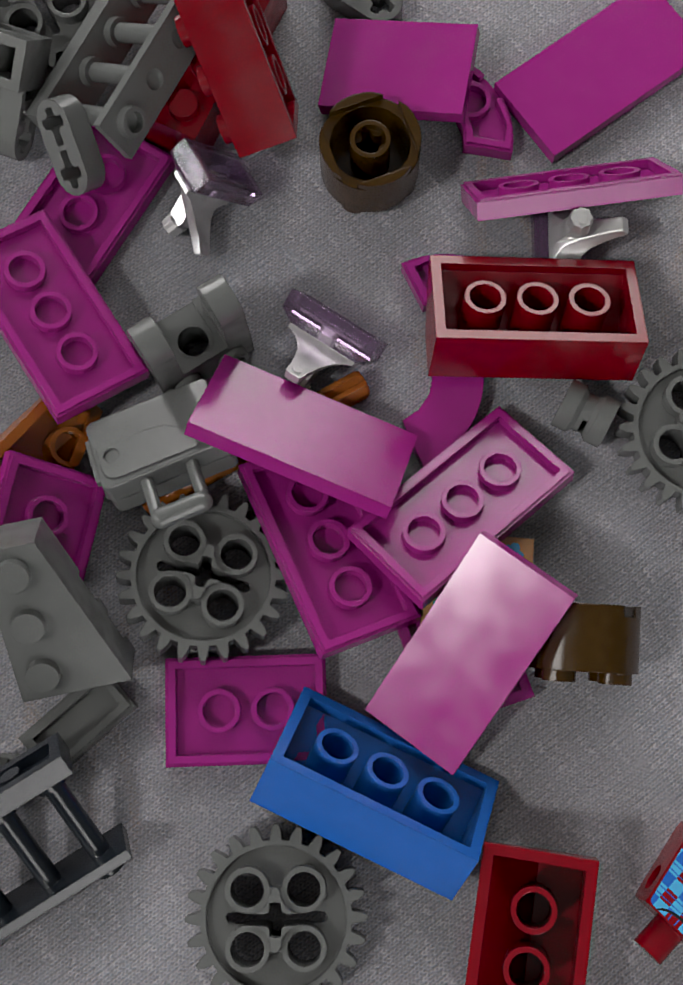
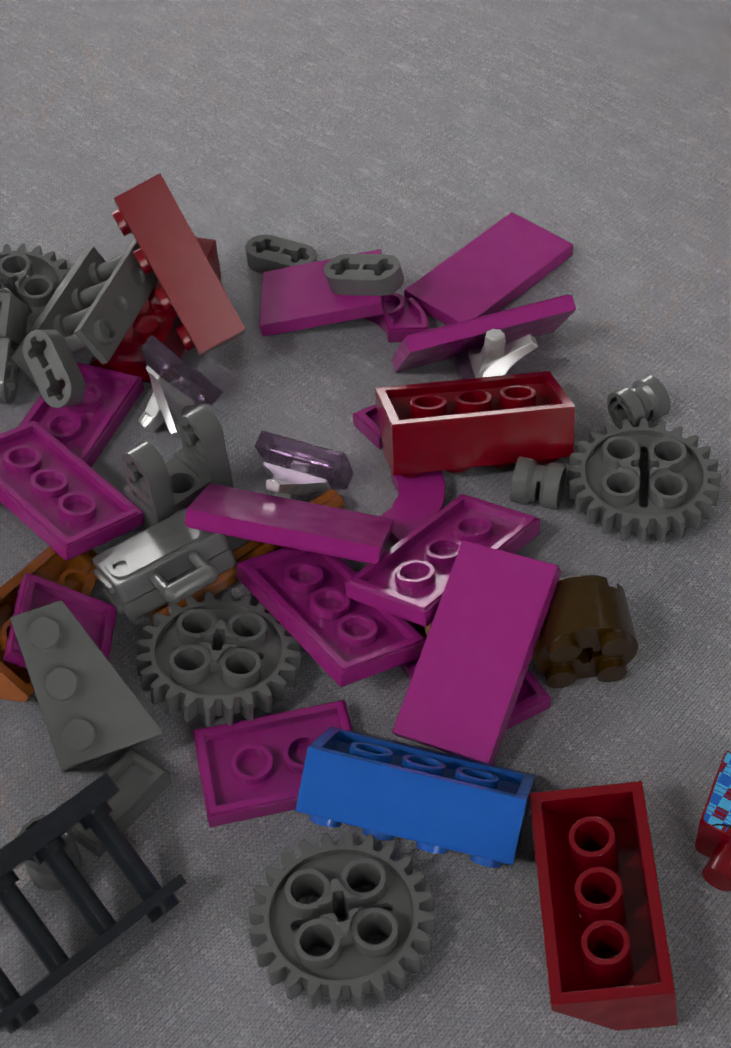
camera: 10 degrees left, 30 degrees down
(369, 152) = (309, 342): dark brown brick -> none
(452, 63) = (364, 274): none -> dark grey beam

